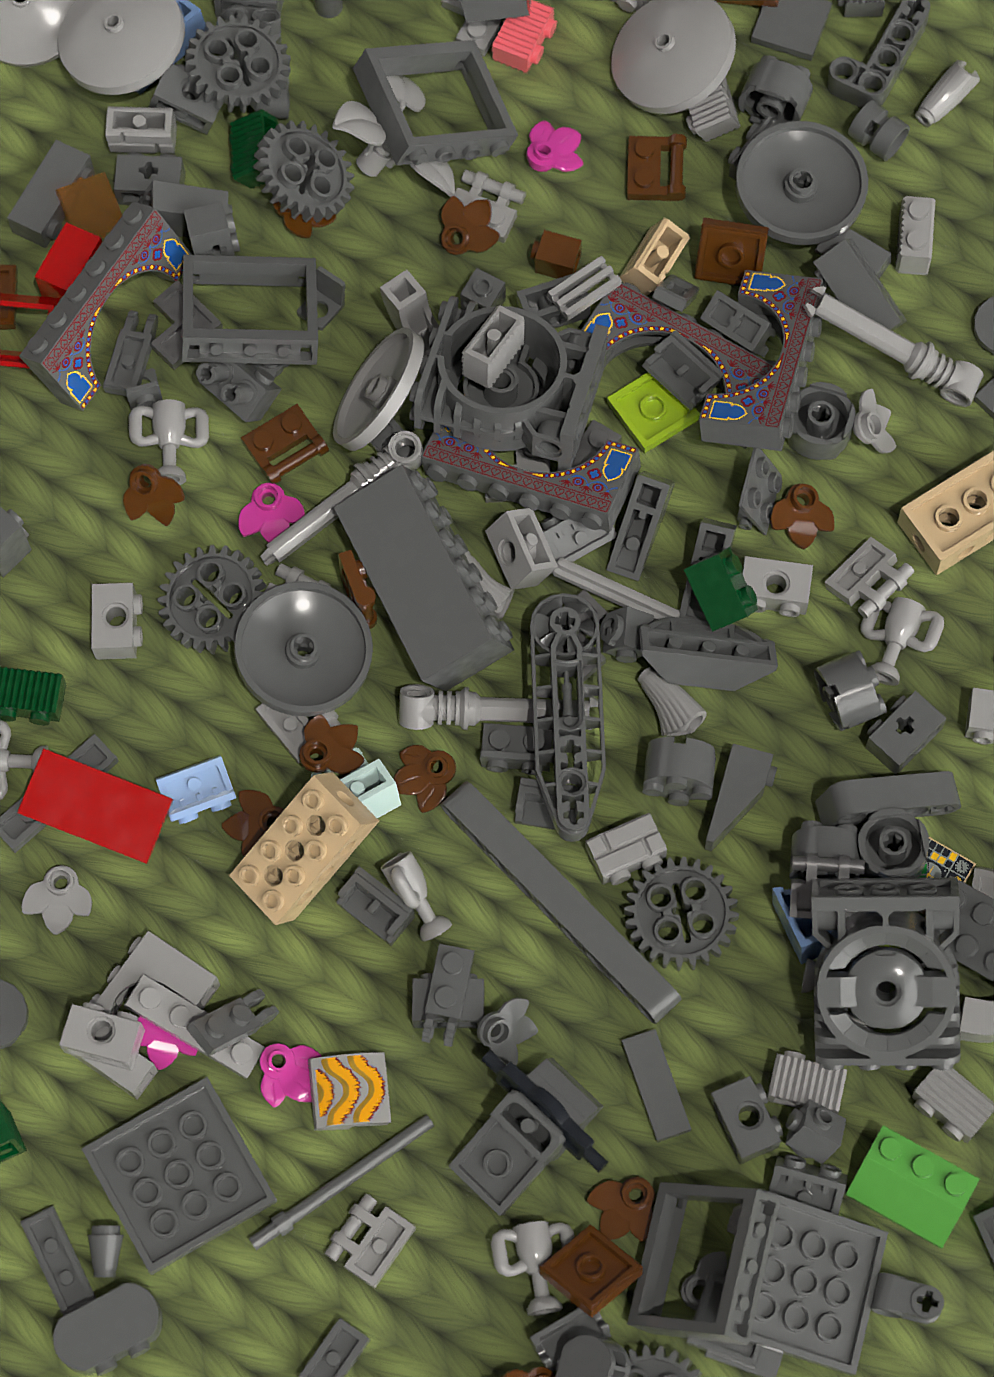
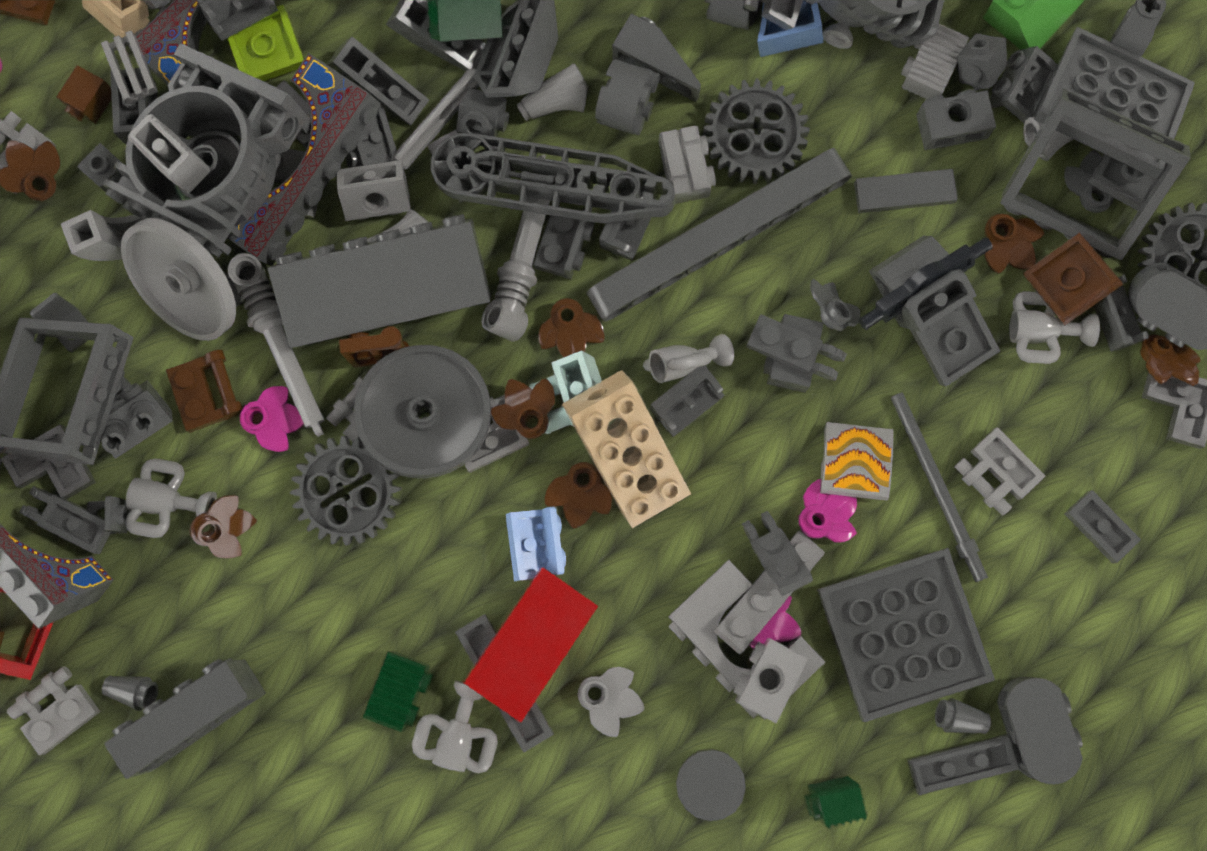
camera: 75 degrees left, 10 degrees up
(107, 603) = (323, 593): light grey brick -> none

